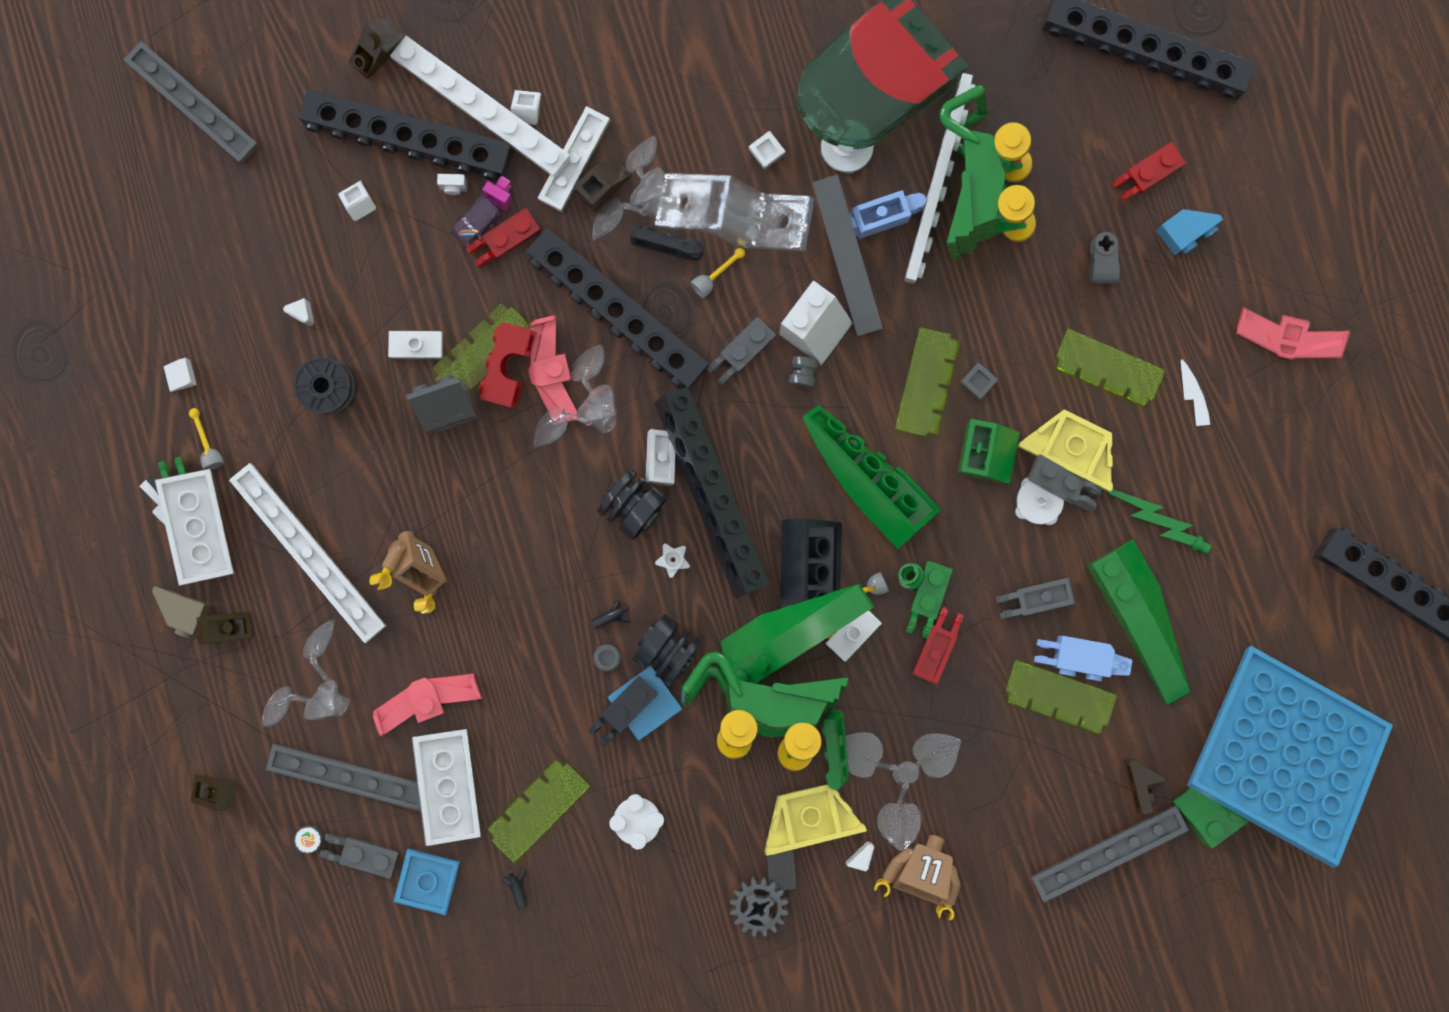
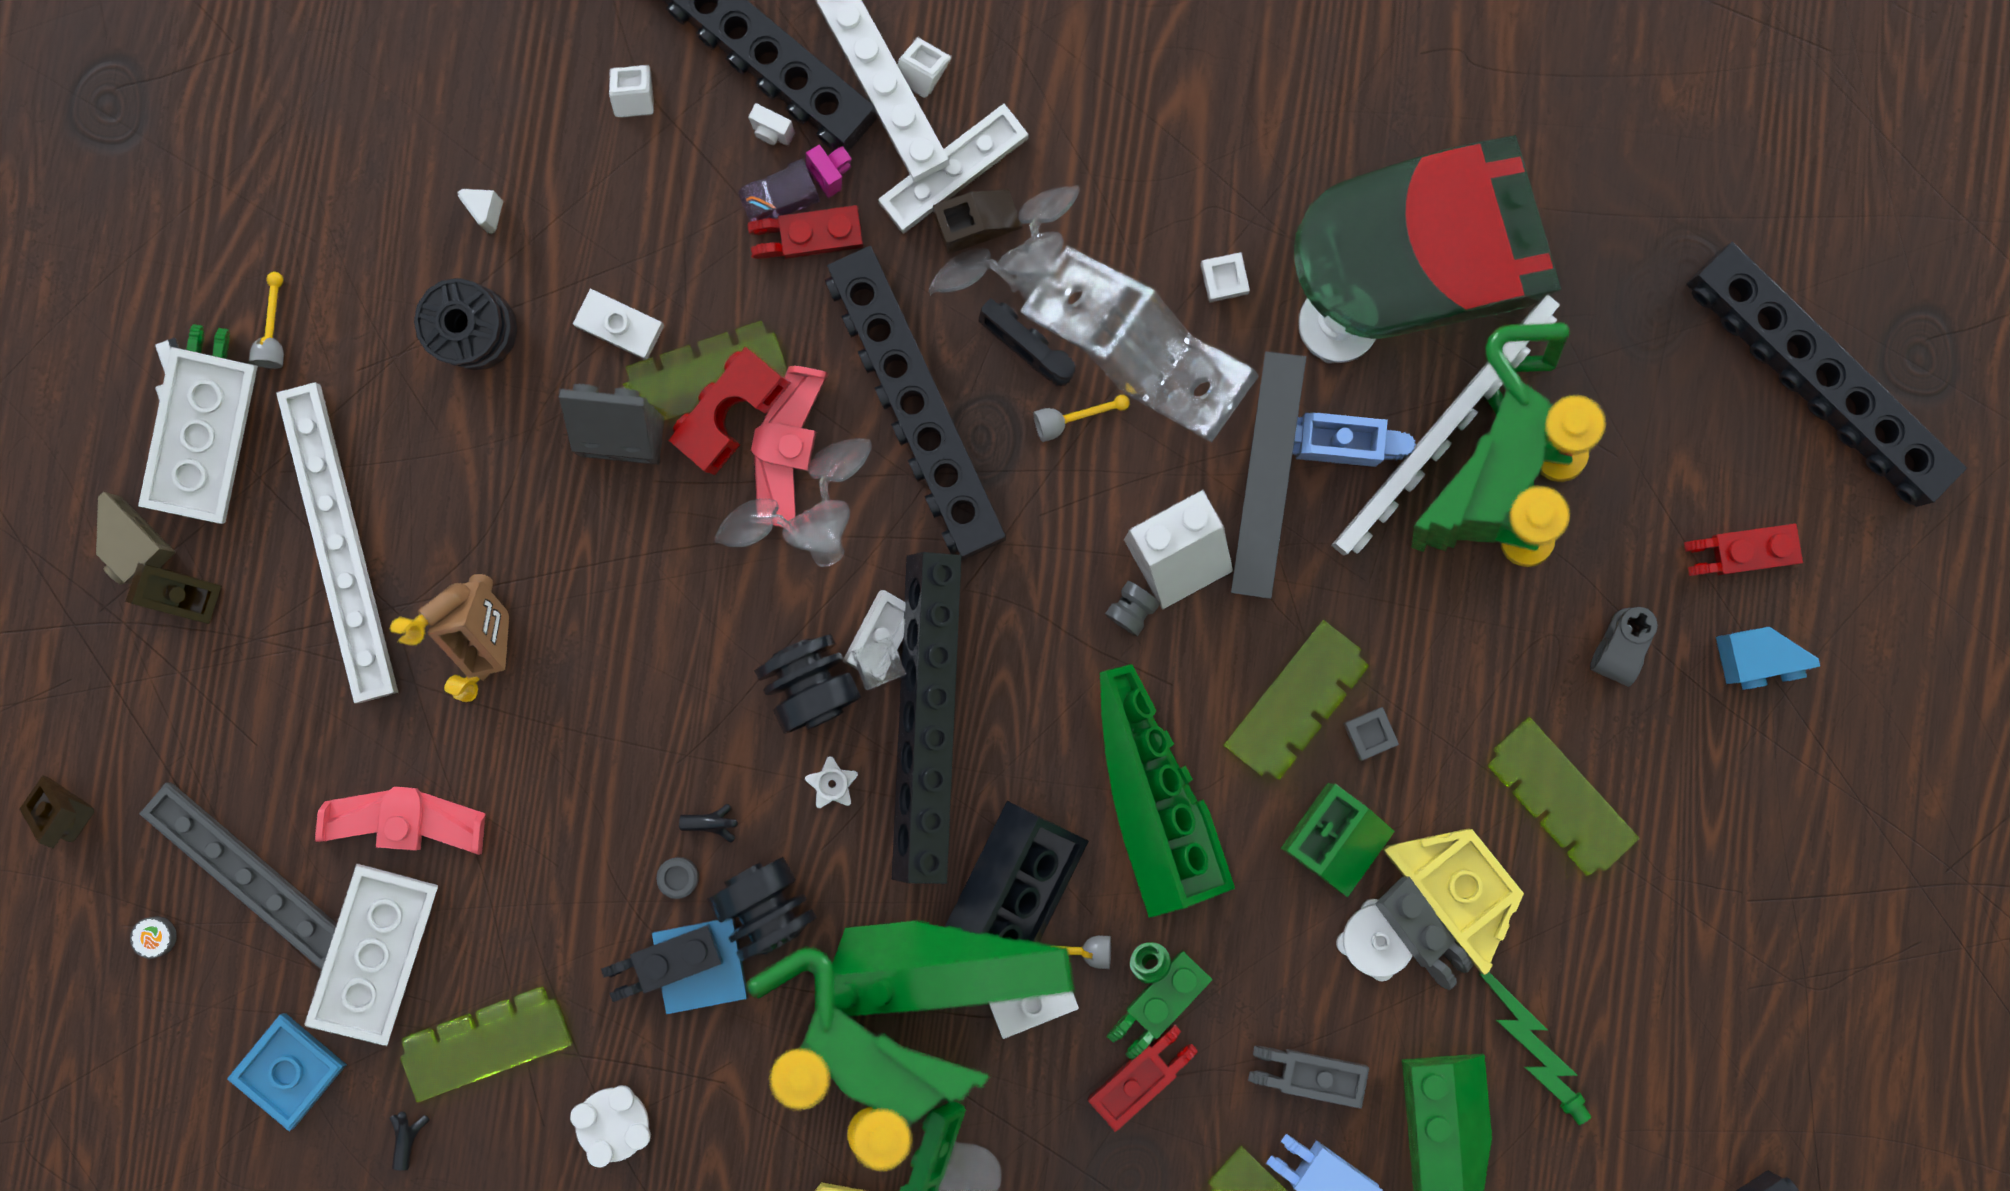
camera: 25 degrees right, 0 degrees up
(180, 375) = (280, 218): white slope -> none
(326, 700) = (263, 755): clear plant -> none
(362, 855) = (214, 993): dark grey hinge -> none
(667, 473) = (878, 662): none -> clear tile
(743, 349) = (1064, 537): dark grey hinge -> none
(1193, 391) = (1664, 886): white sticker -> none
(1291, 337) = (1839, 875): coral plate -> none

